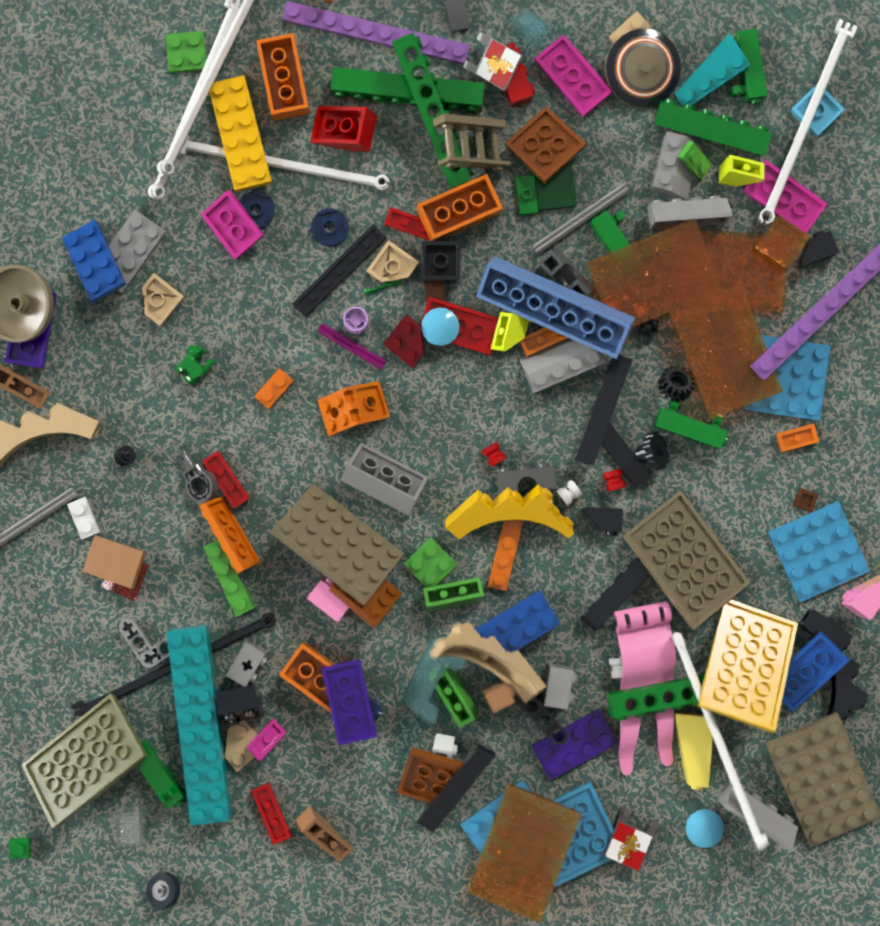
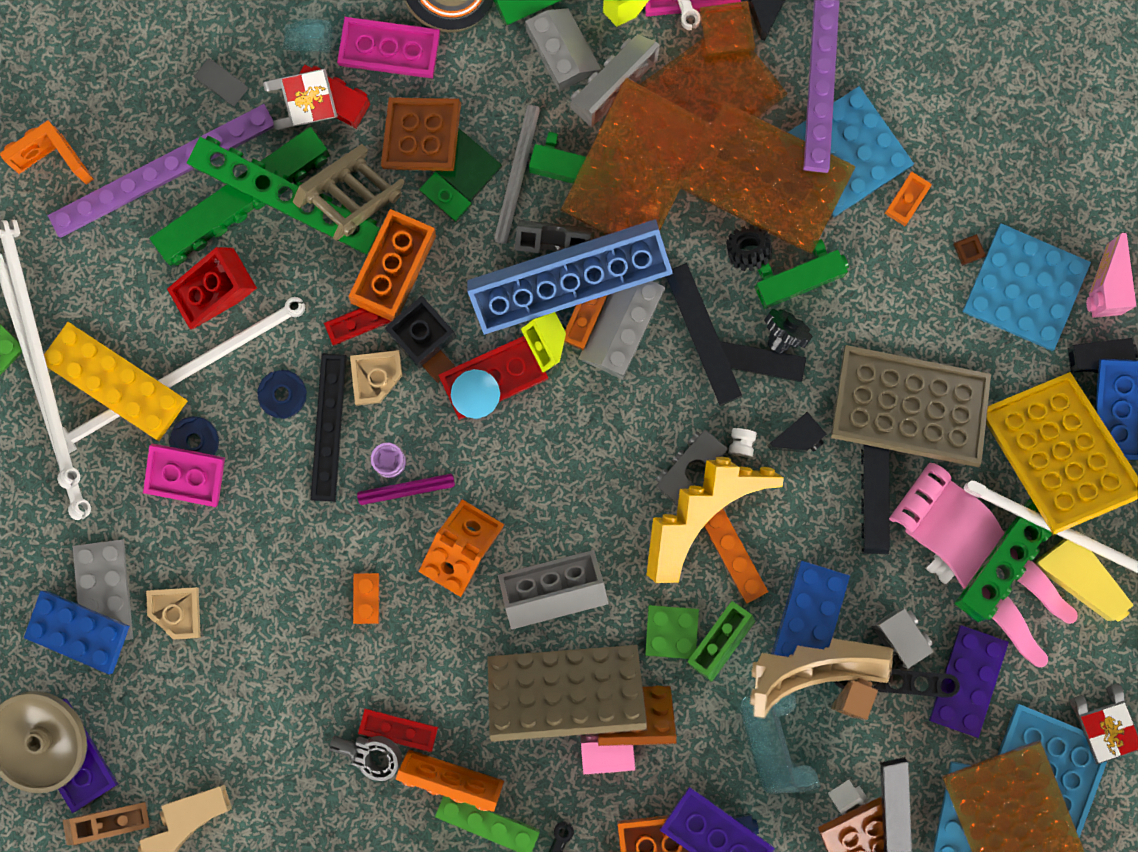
camera: 40 degrees left, 5 degrees down
(124, 455) = (276, 797): black wheel -> none
(192, 366) = (266, 648): green animal -> none
(283, 77) = (108, 289): orange brick -> none
(367, 291) = (374, 421): green hinge -> none
(407, 341) = (455, 436): dark red plate -> none
(456, 697) = (817, 739): bright green brick -> none
(494, 454) = (637, 470): red wheel -> none
(614, 480) = (773, 392): red wheel -> none
(649, 326) = (674, 218): black wheel -> none
(694, 160) = (575, 25): bright green plate -> none

